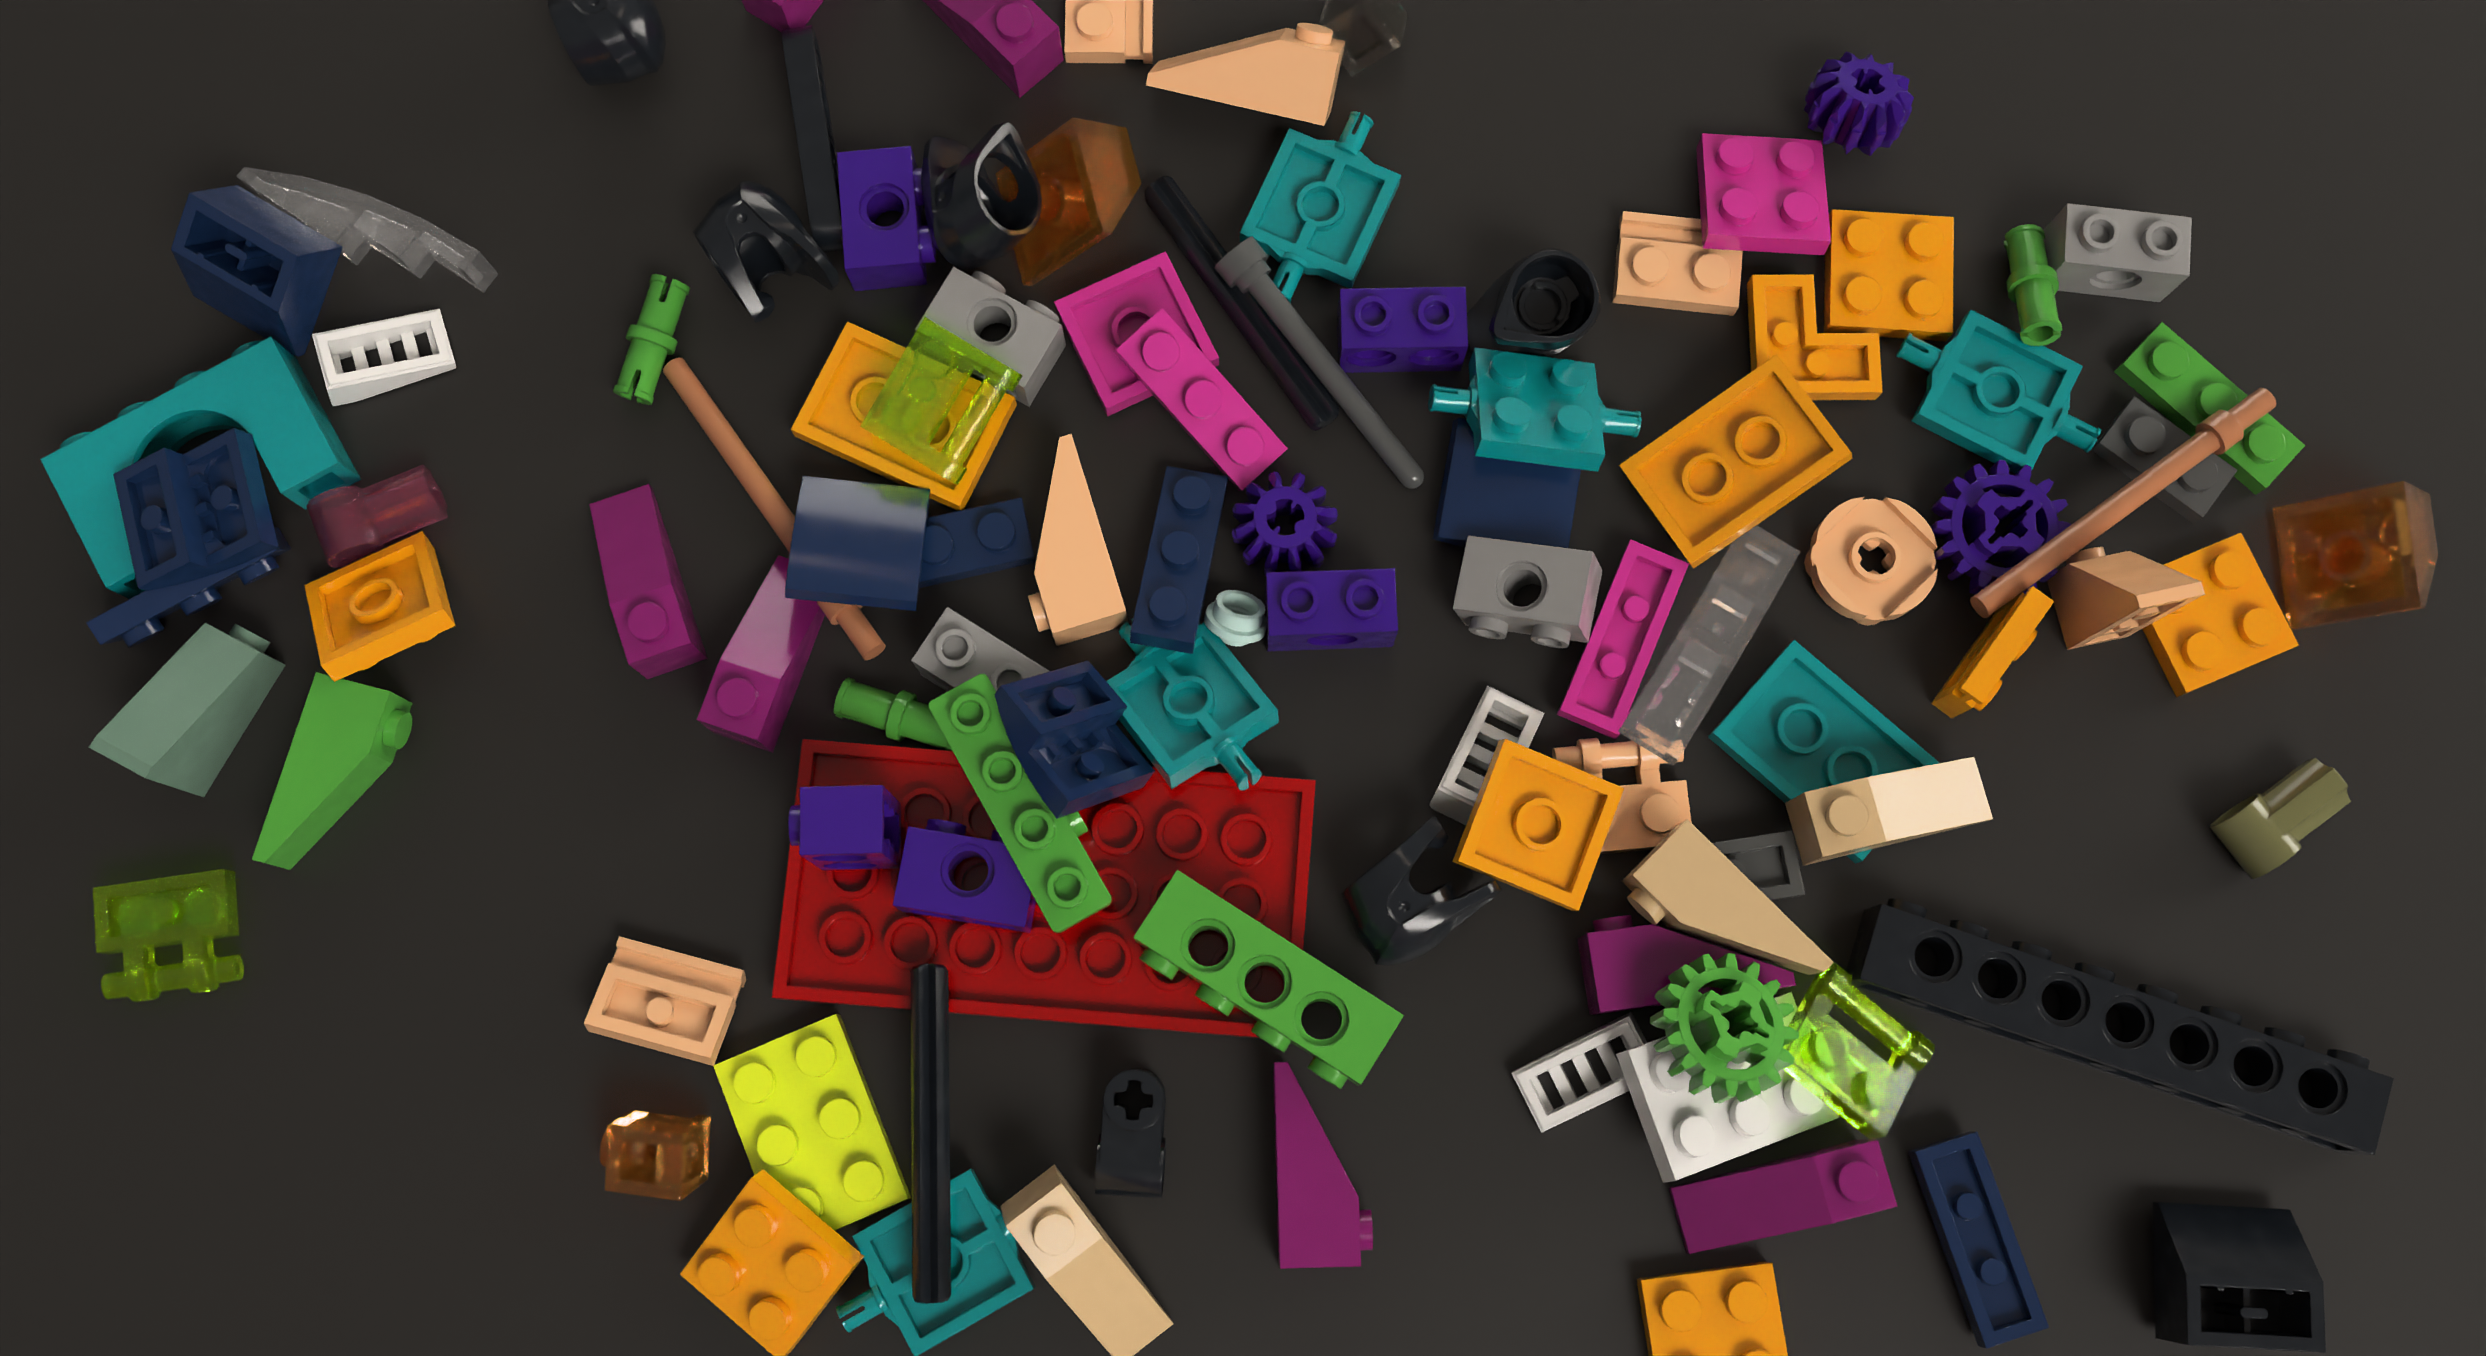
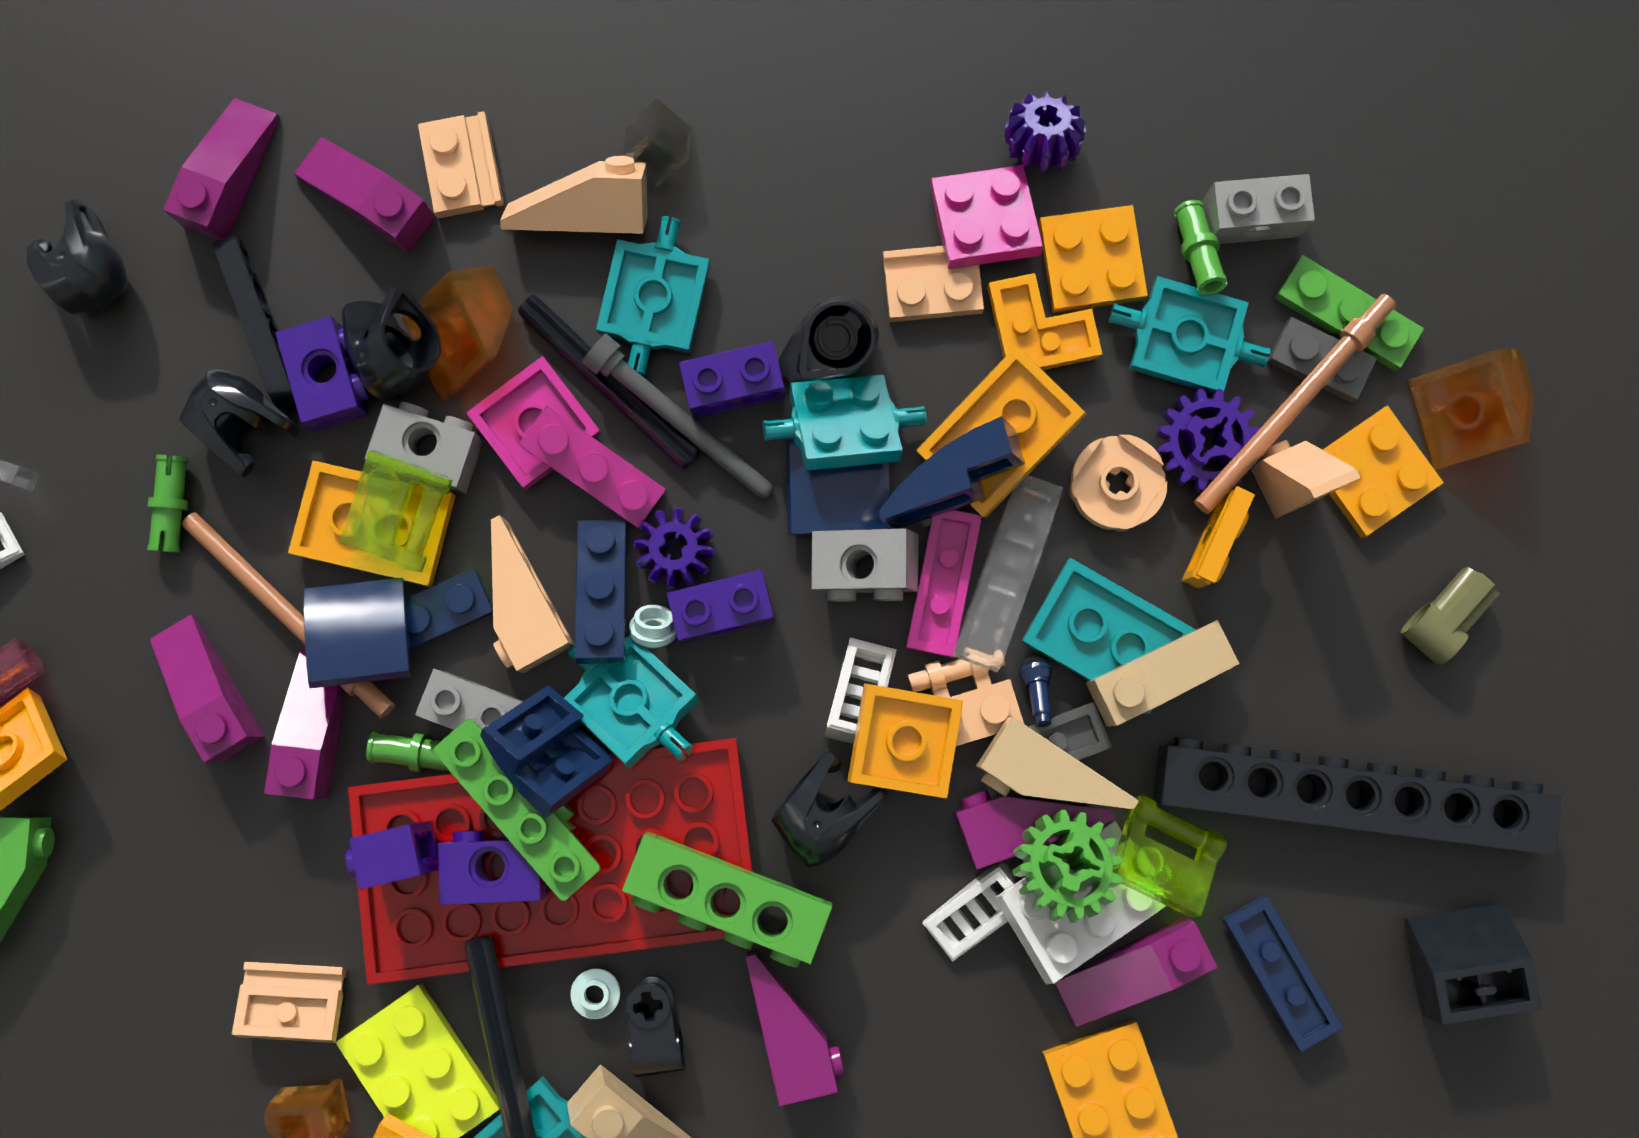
camera: 10 degrees left, 5 degrees up
(1082, 1086) = (606, 982): none -> light aqua plate
(1665, 497) = (954, 474): none -> dark blue slope
(1721, 781) = (1036, 674): none -> dark blue piece

